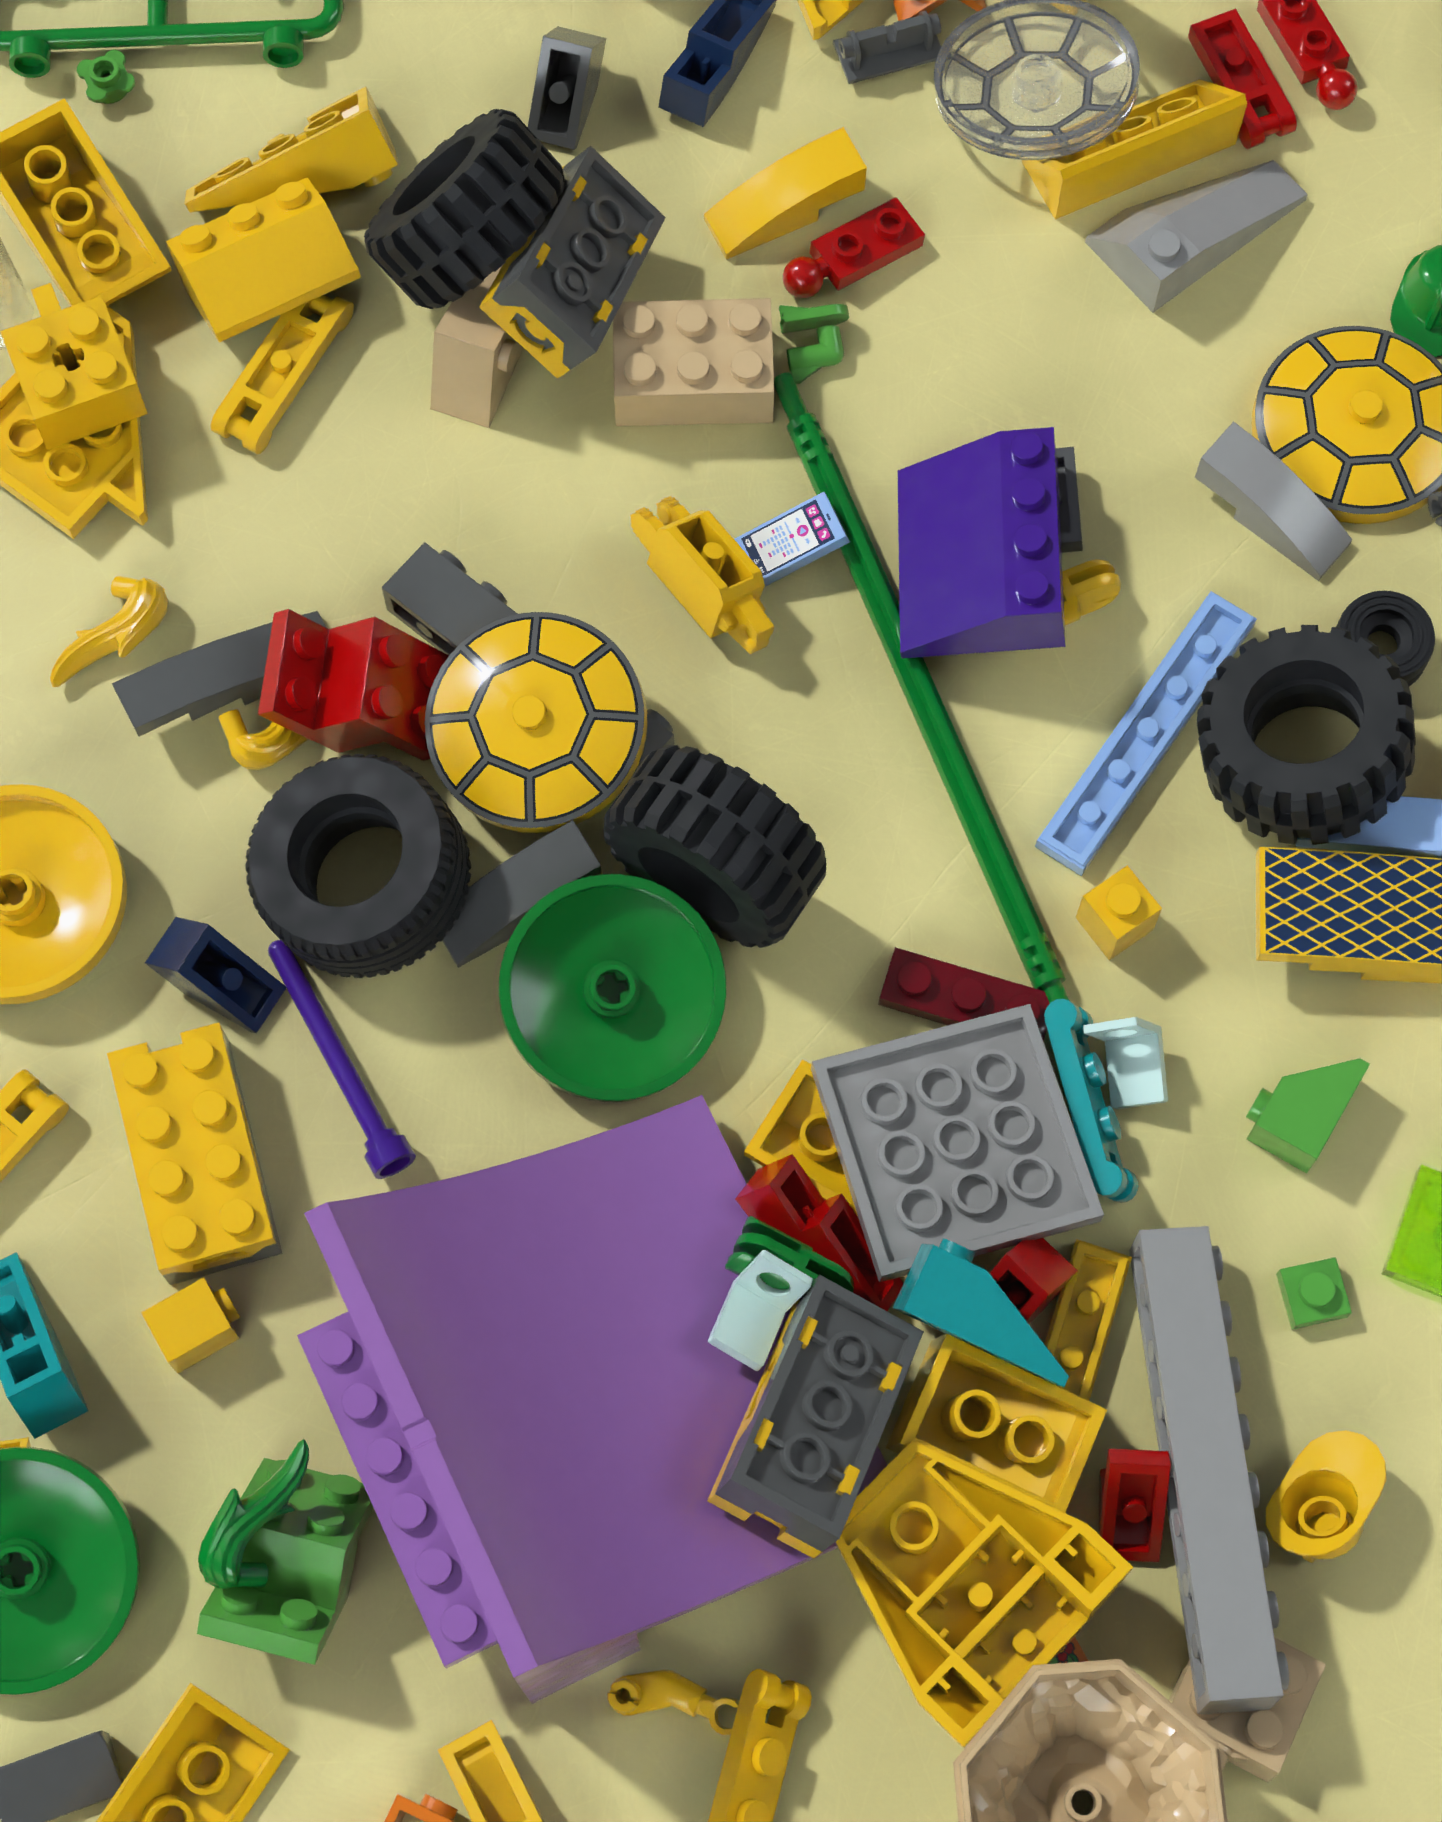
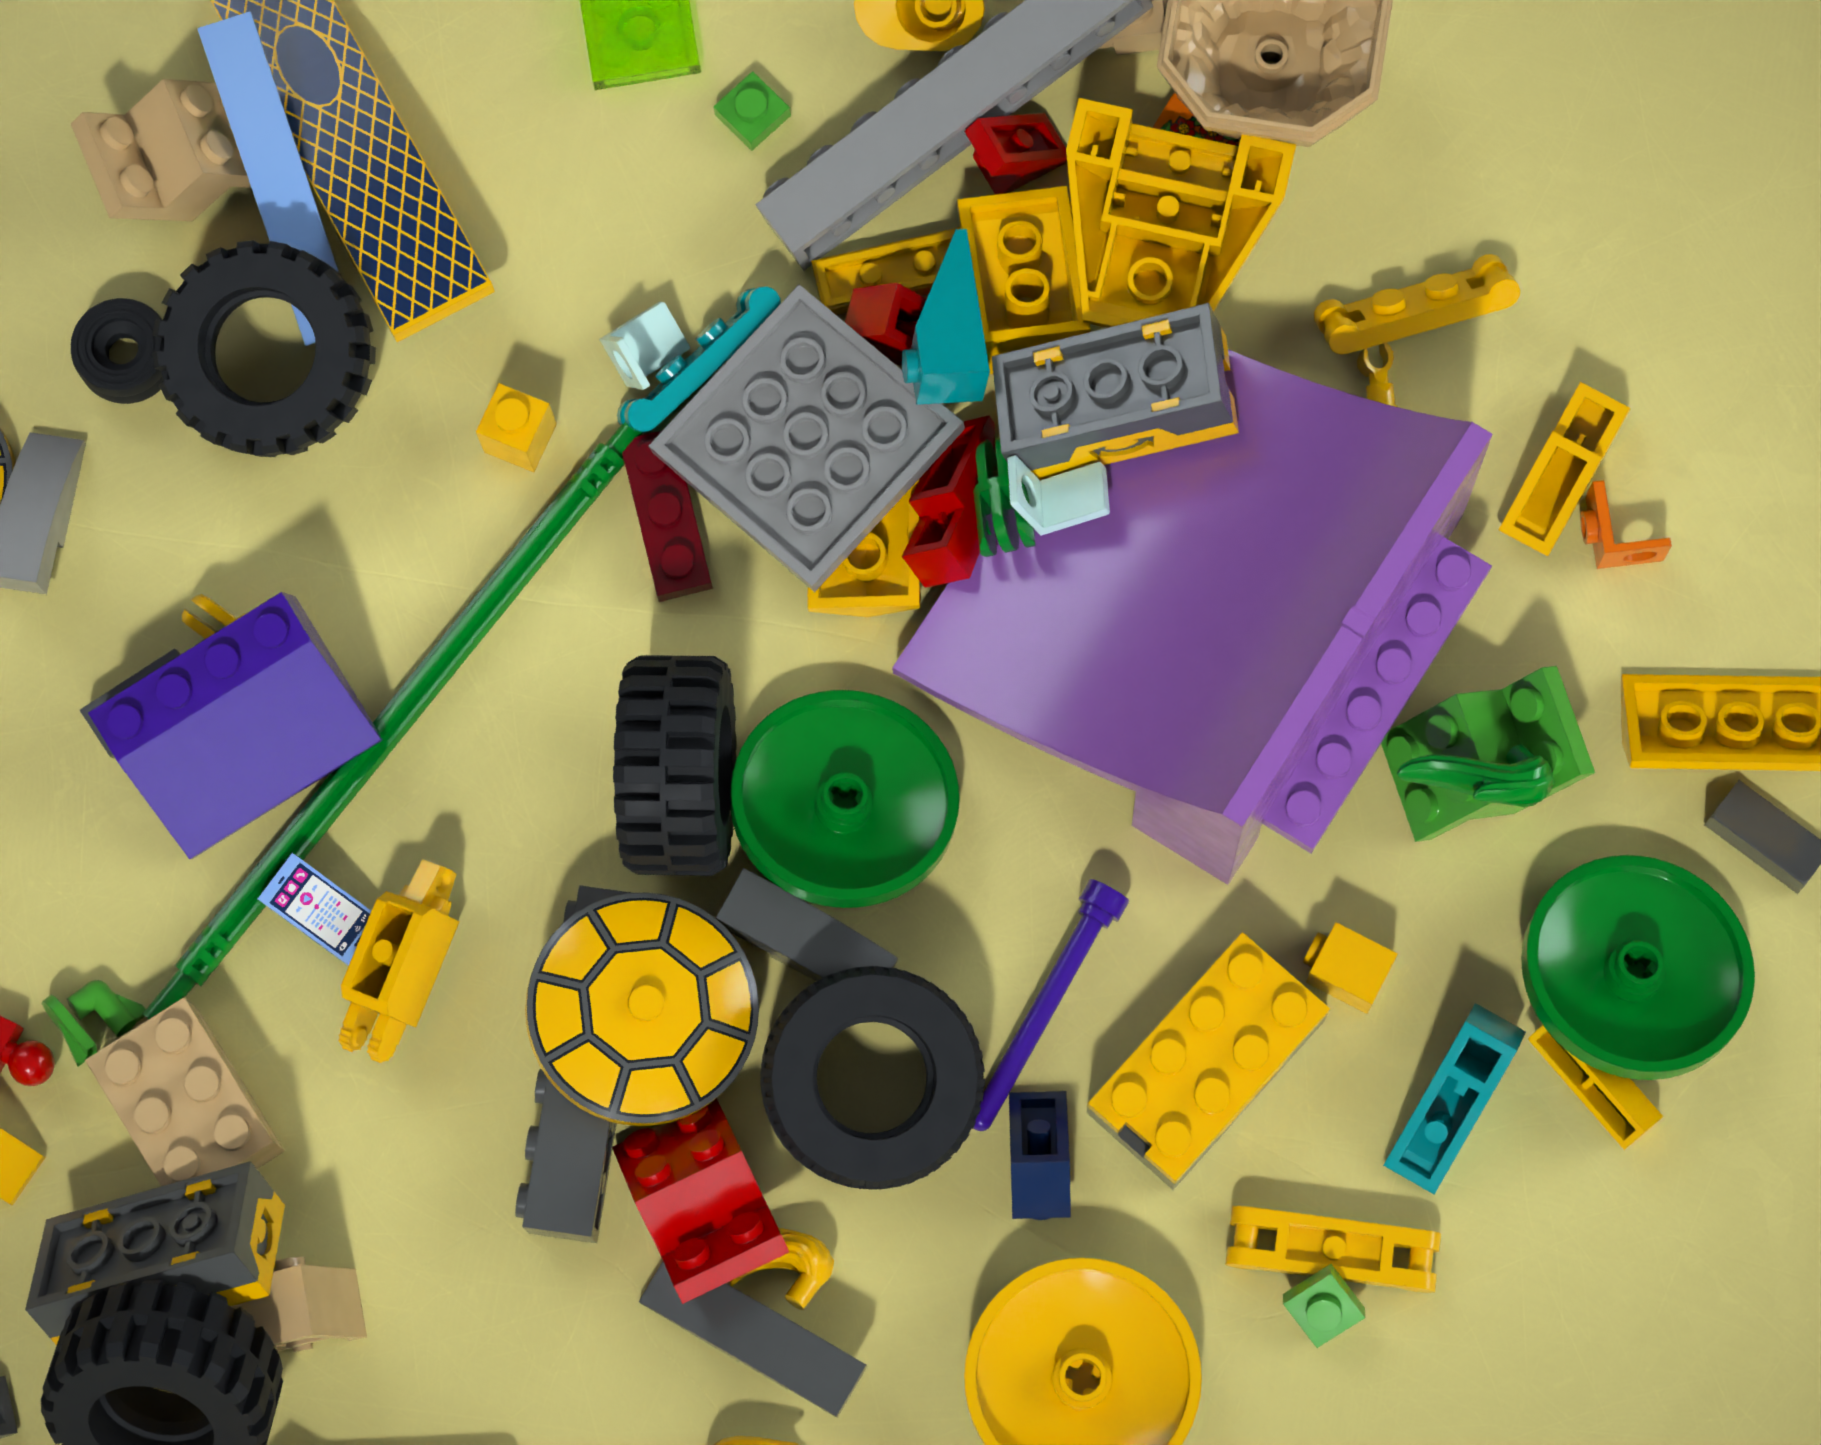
camera: 115 degrees left, 5 degrees up
(1144, 734) = (323, 504): light blue tile -> none
(1304, 1111) = (601, 189): bright green slope -> none

